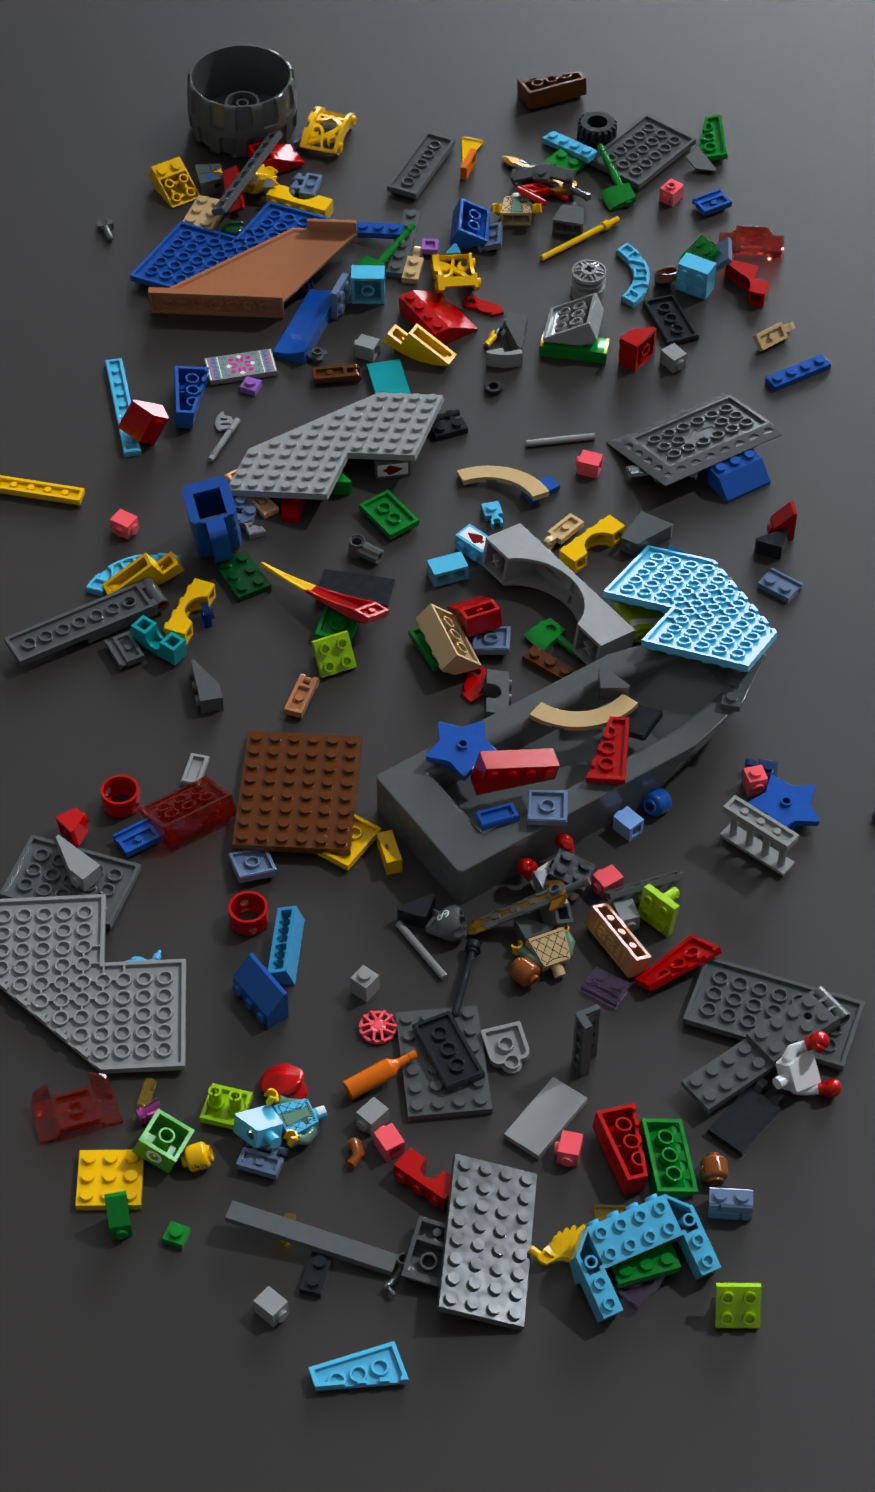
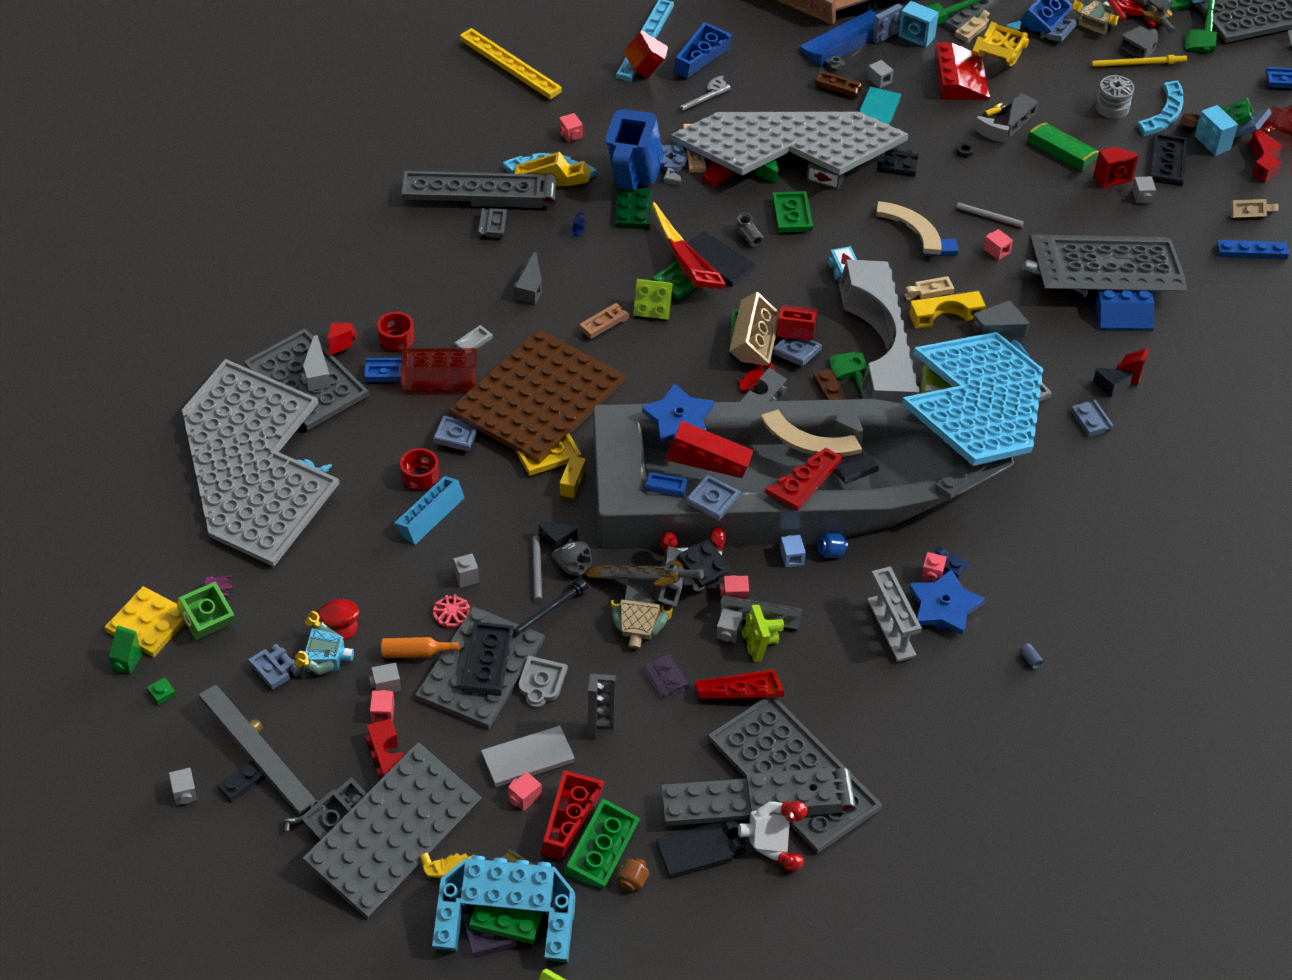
camera: 30 degrees right, 0 degrees up
(75, 1108) = (167, 553): clear red piece -> none
(147, 1092) = (230, 568): clear yellow piece -> none
(170, 648) = (524, 231): teal arch -> none
(195, 593) = (548, 224): yellow arch -> none
(197, 1156) = (224, 638): yellow head -> none
(223, 1104) = (279, 610): lime plate -> none
(238, 366) = (764, 47): light grey tile -> none
(250, 386) = (761, 65): medium lavender plate -> none
(259, 1127) = (287, 638): medium azure torso -> none
(261, 992) = (375, 536): blue slope -> none
(357, 1150) = (352, 701): dark orange arm -> none
(361, 1369) = (214, 877): medium azure wing -> none
(419, 345) = (925, 89): yellow slope -> none
(430, 246) = (999, 16): medium lavender plate -> none
(447, 569) = (805, 275): medium azure brick -> none
(482, 306) = (1008, 81): red brick -> none
(493, 512) = (882, 248): medium azure plate -> none
(525, 972) = (604, 627): dark orange head -> none
(575, 321) = (1076, 124): light grey slope -> none
(617, 940) = (703, 641): nougat brick -> none
(671, 192) = (1251, 55): coral brick -> none
(730, 1203) = (622, 911): sand blue brick -> none

